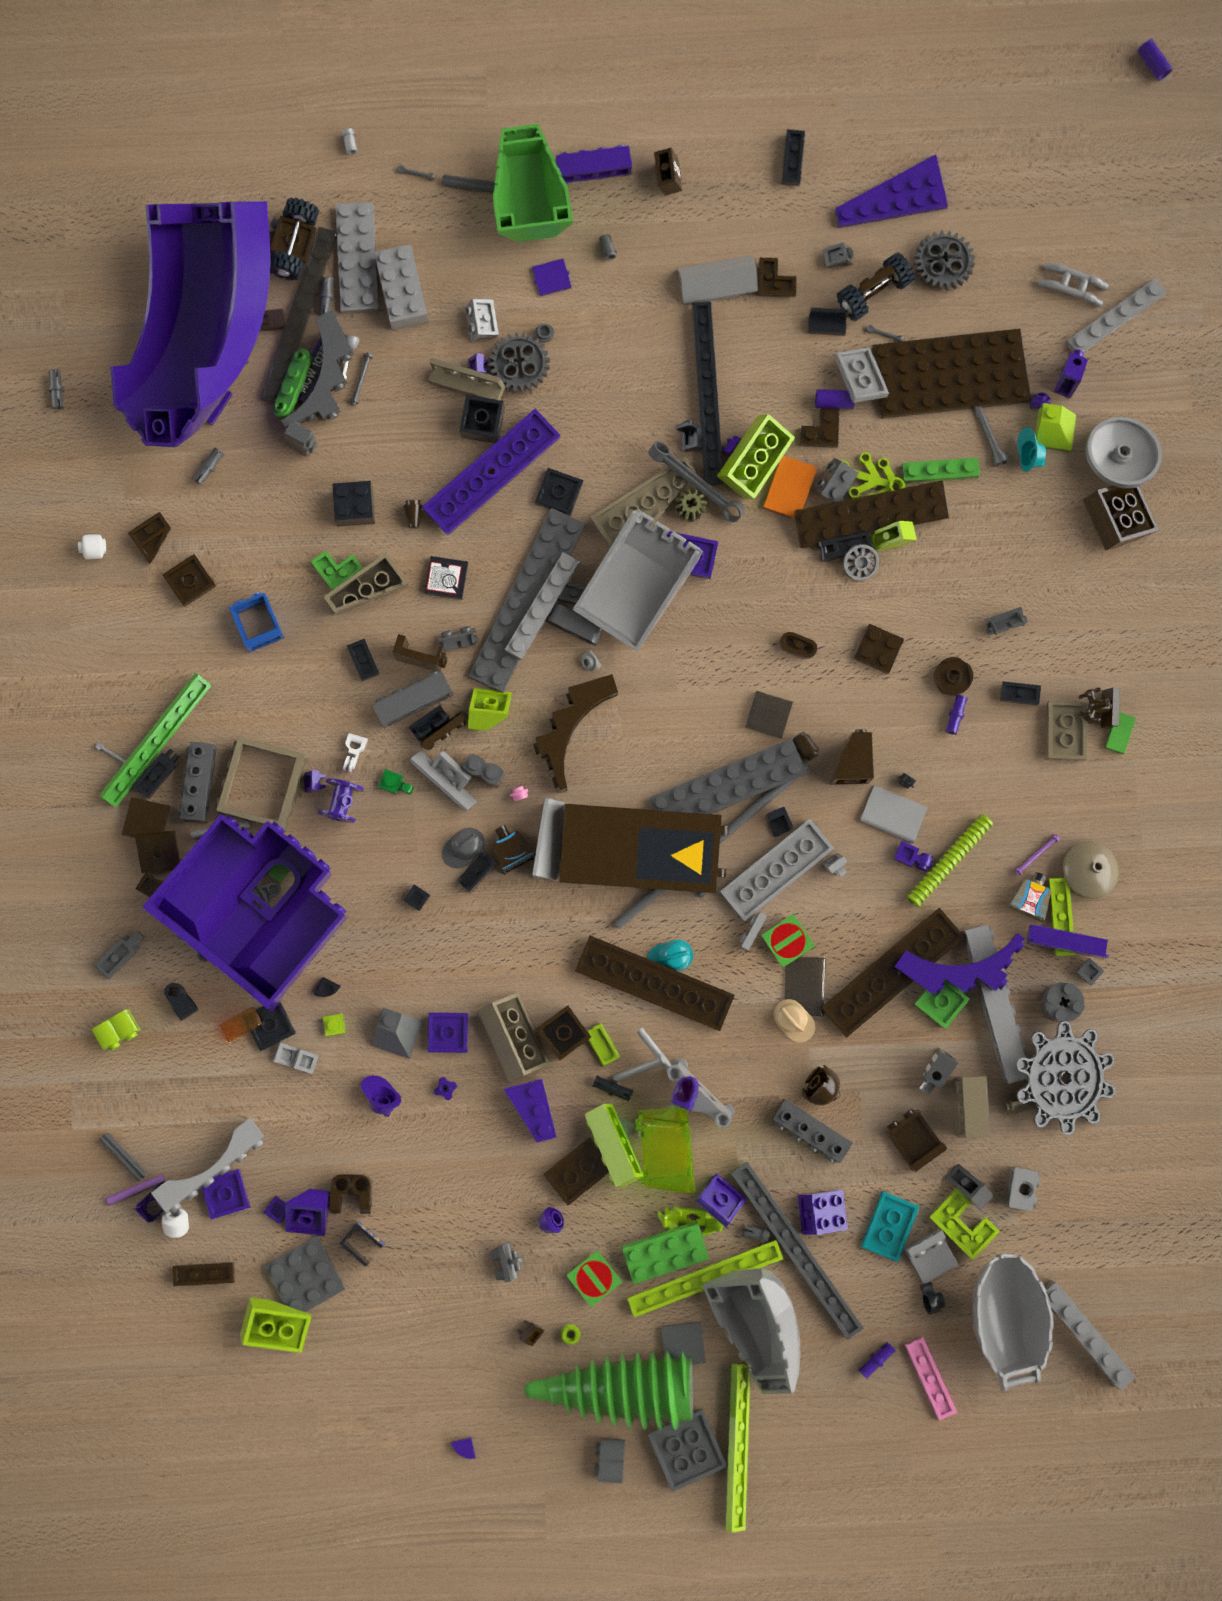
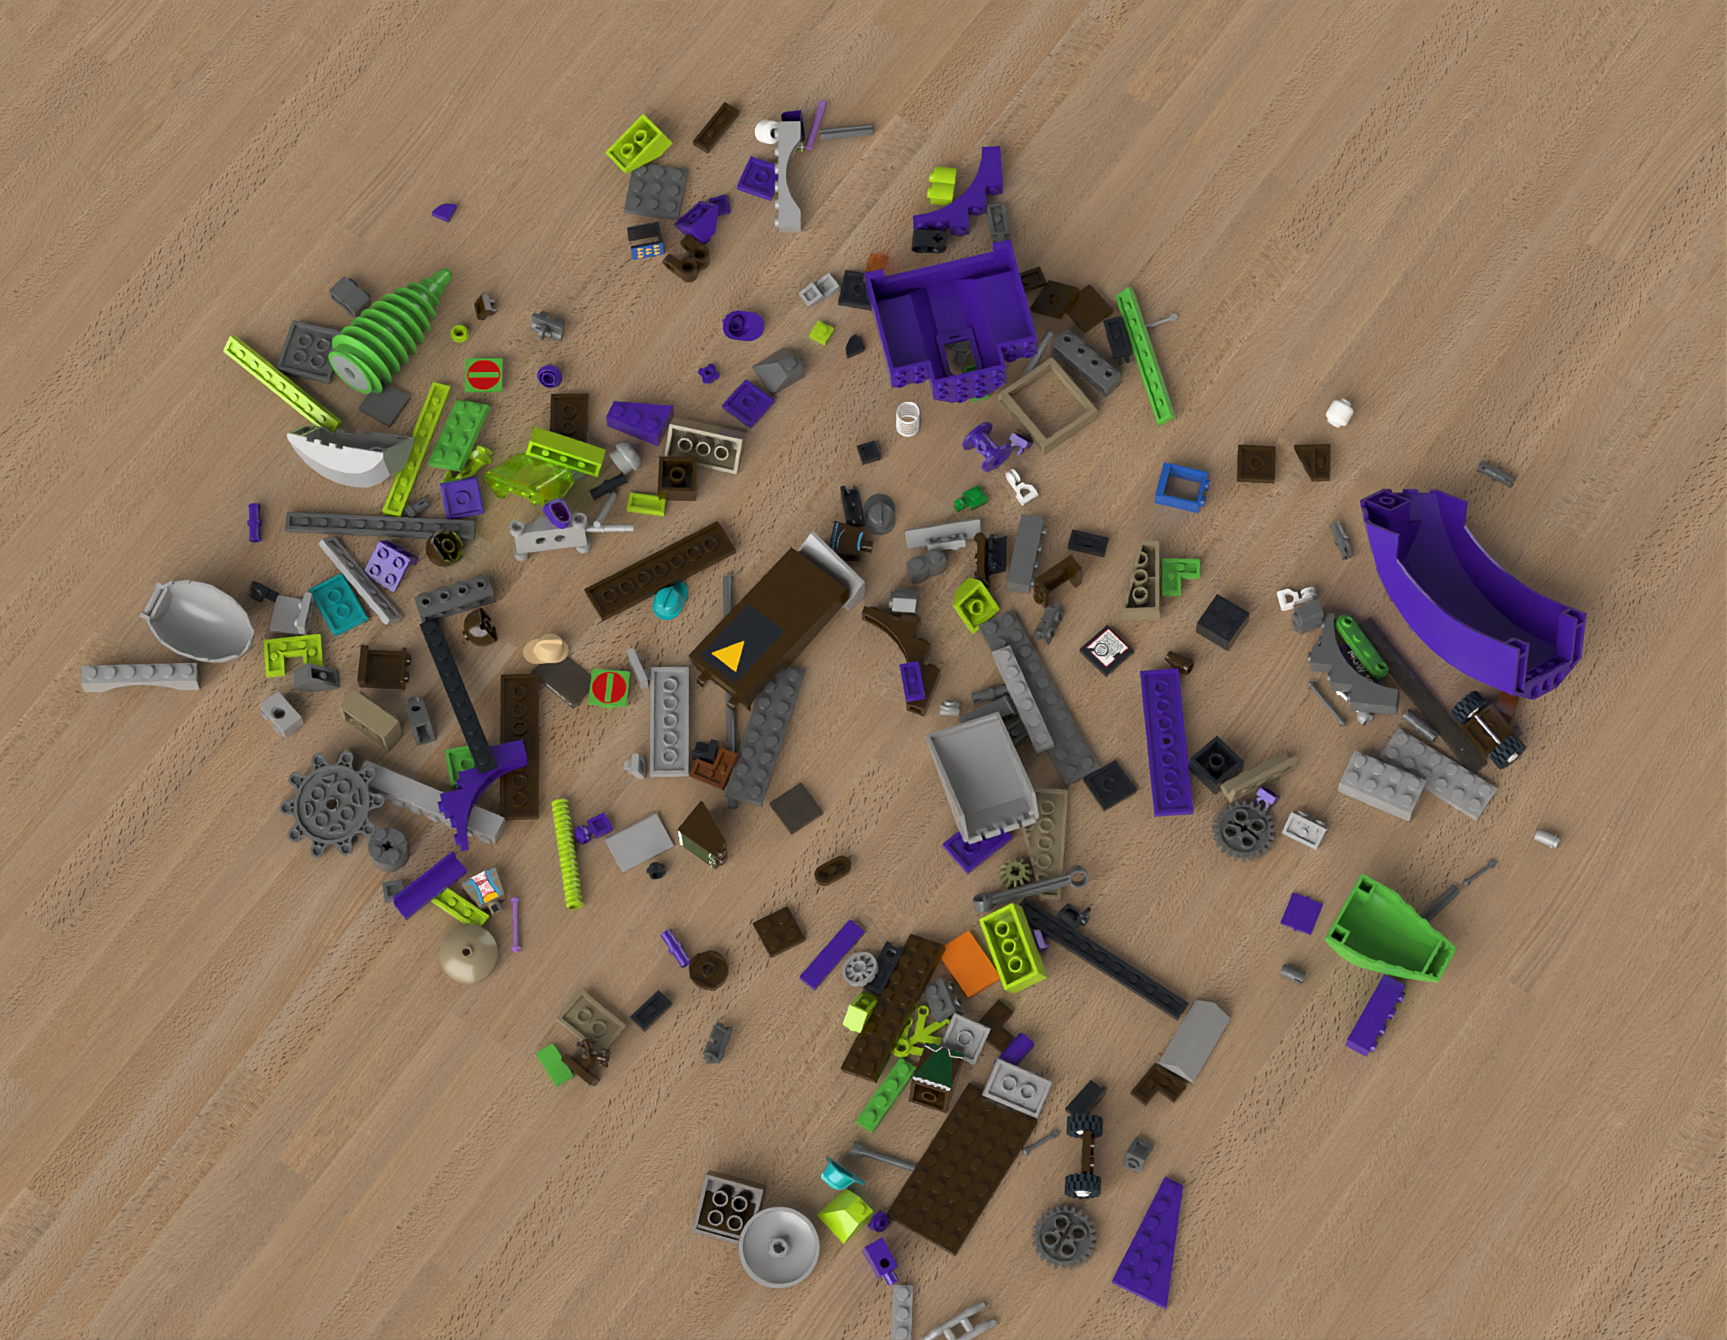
camera: 135 degrees right, 15 degrees down
(81, 995) = (972, 202): none -> dark purple arch
(273, 320) = (1433, 670): dark brown plate -> none
(296, 475) = (1307, 595): none -> white piece
(354, 879) = (899, 419): none -> white piece
(519, 793) = (887, 579): bright pink plate -> none
(530, 761) = (903, 600): none -> brick
(544, 333) = (1255, 871): dark grey plate -> none
(555, 639) = (989, 694): none -> dark grey pin
(579, 1092) = (626, 458): none -> light grey piece
(598, 697) = (912, 681): none -> dark purple plate
(668, 171) = (1320, 1067): dark brown brick -> none
(777, 1174) = (444, 548): none -> dark brown cylinder
(791, 794) = (718, 773): none -> reddish brown plate
(793, 157) = (1256, 1184): black plate -> none
(805, 746) = (747, 814): dark brown brick -> none
(854, 442) = (965, 1037): none -> light grey plate
(857, 1225) = (360, 580): none -> light grey plate
(864, 594) = (832, 955): none -> dark purple tile
(896, 1052) = (458, 696): none -> black plate
(900, 438) = (936, 1077): none -> slope
(930, 1378) = (209, 551): bright pink tile -> none

